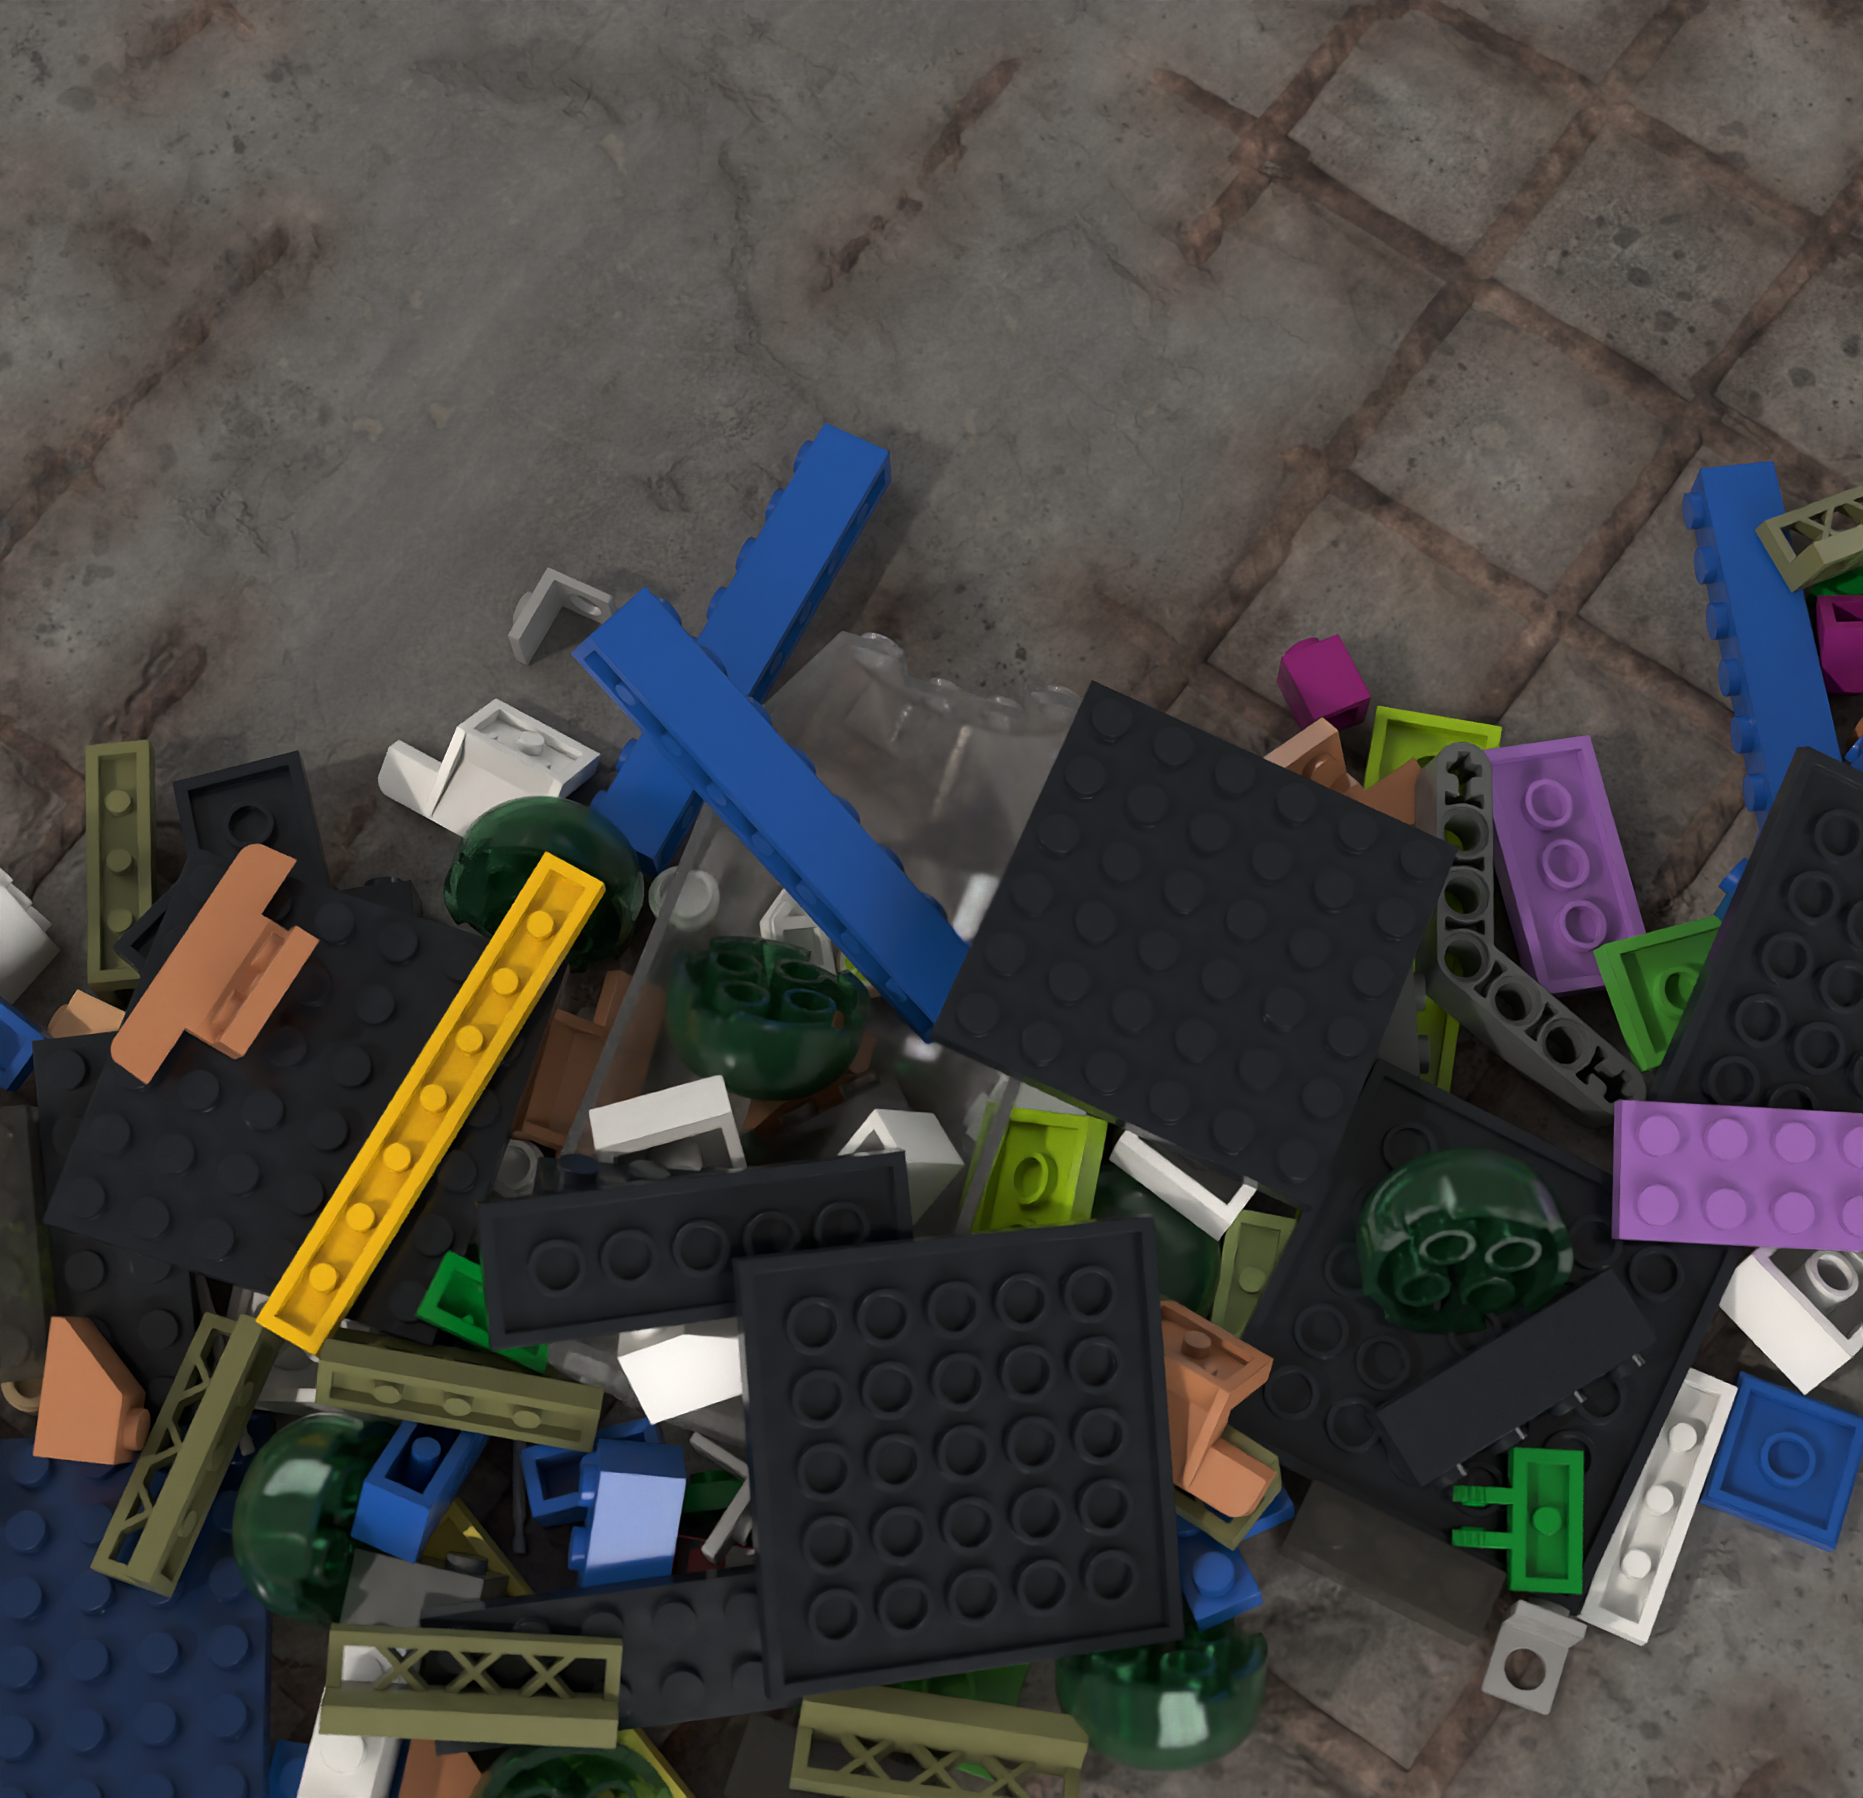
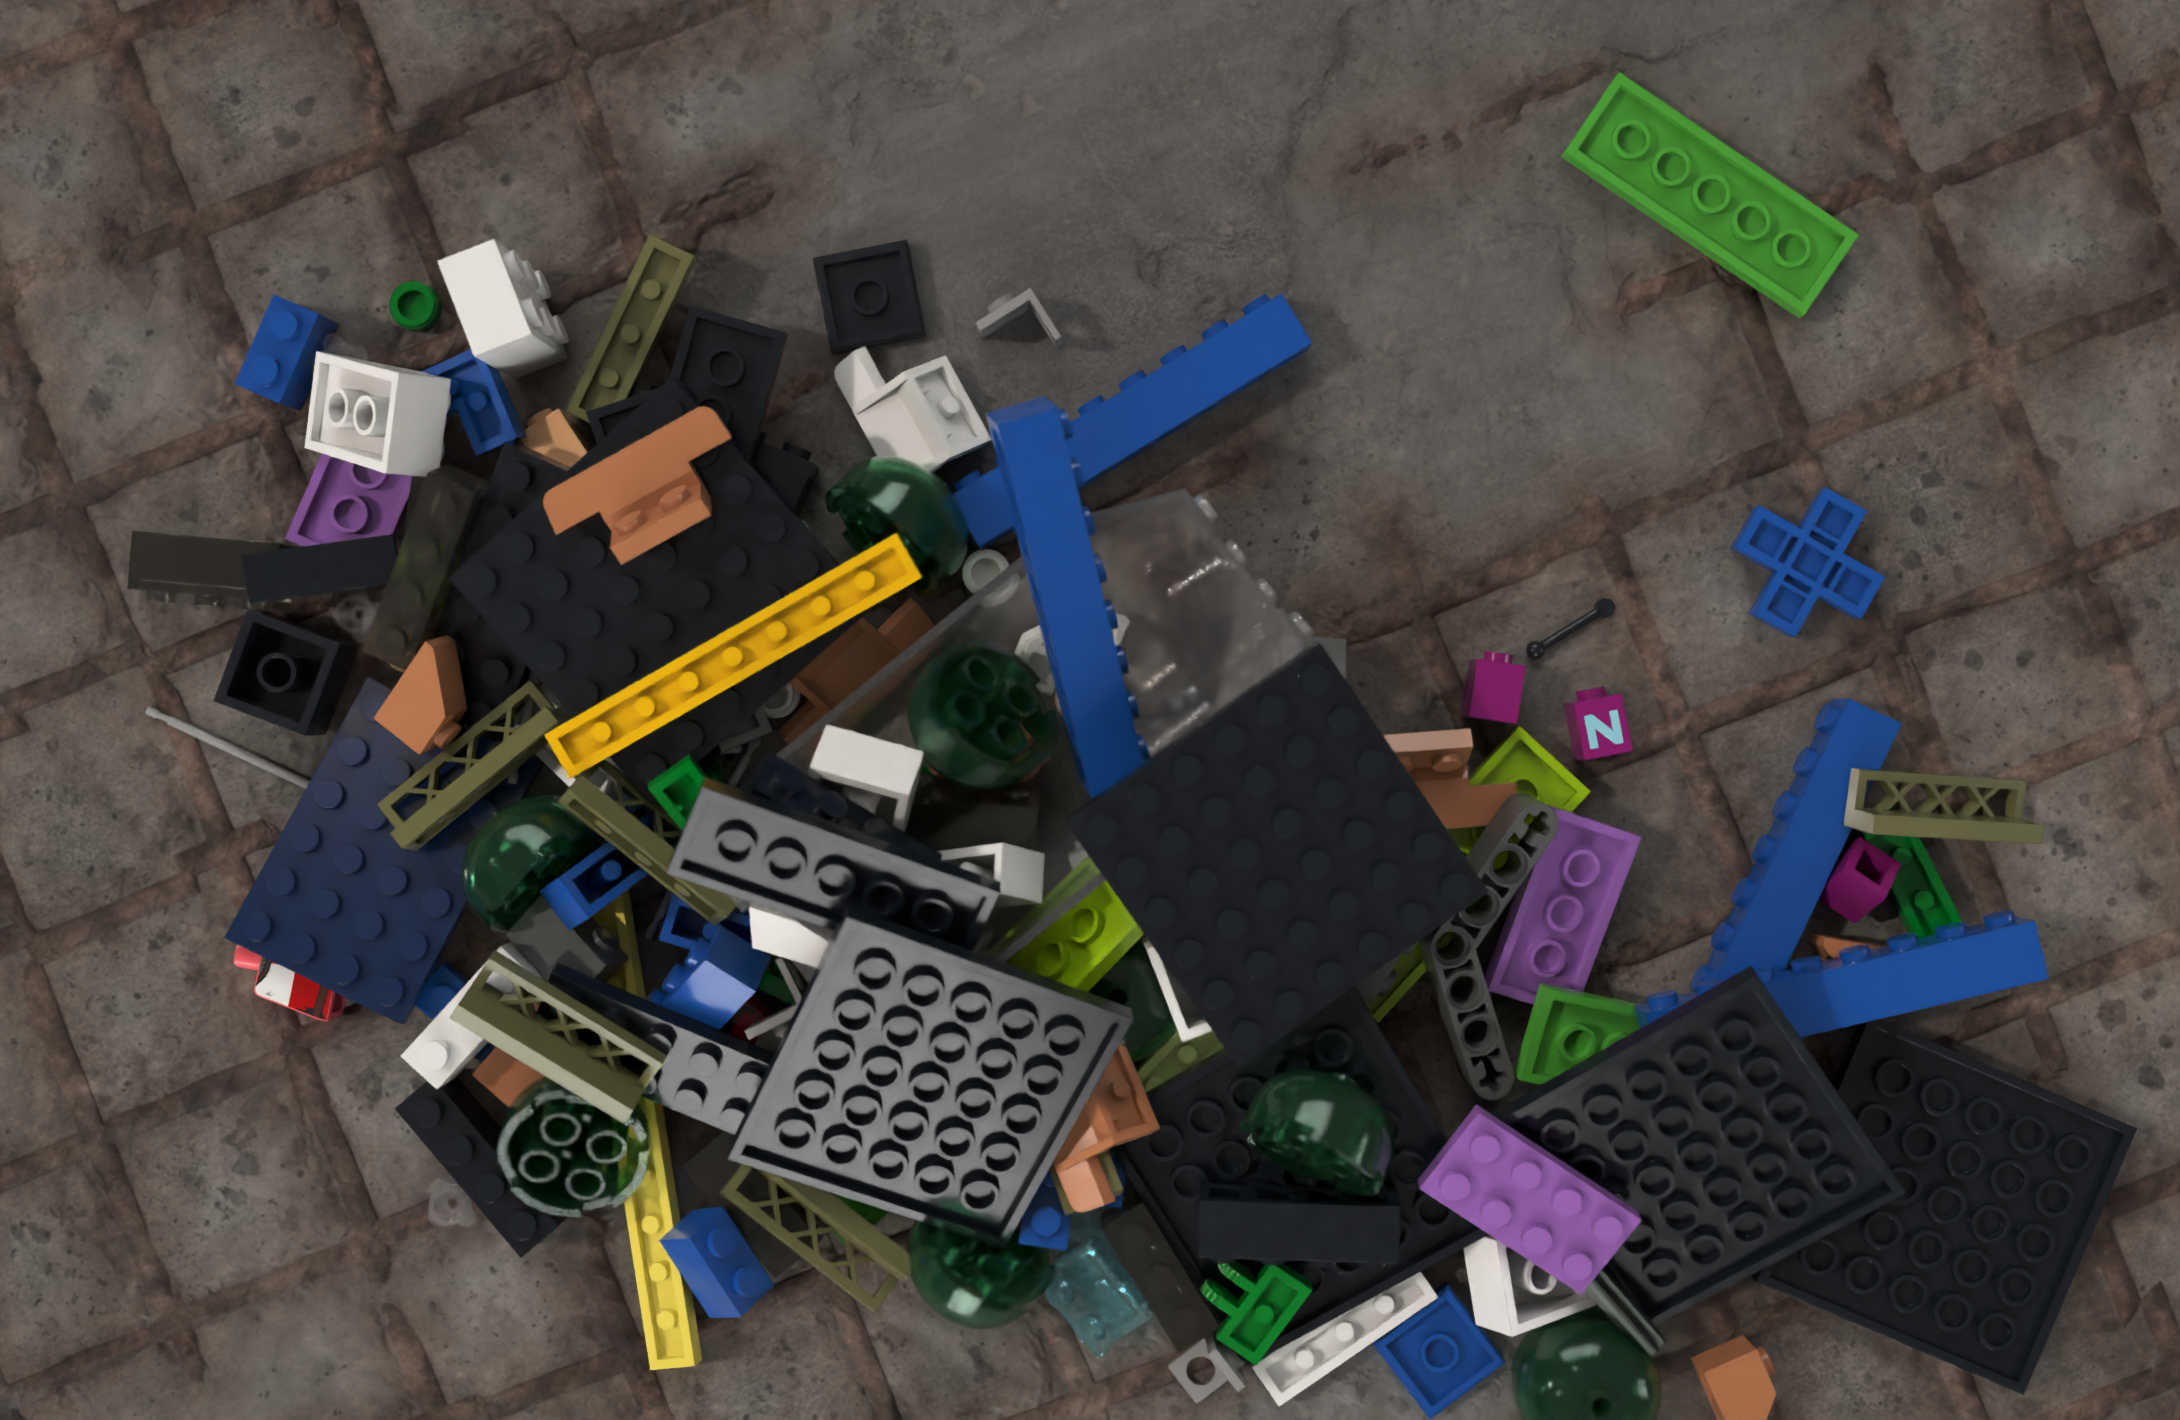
camera: 25 degrees right, 20 degrees up
(375, 690) = (869, 297): none -> black tile
(1206, 105) = (1709, 195): none -> bright green plate
(1337, 1644) = (1096, 1296): none -> clear light blue bracket
(1381, 548) = (1602, 608): none -> black hinge
(1459, 657) = (1597, 724): none -> magenta brick
(1559, 377) = (1807, 562): none -> blue plate

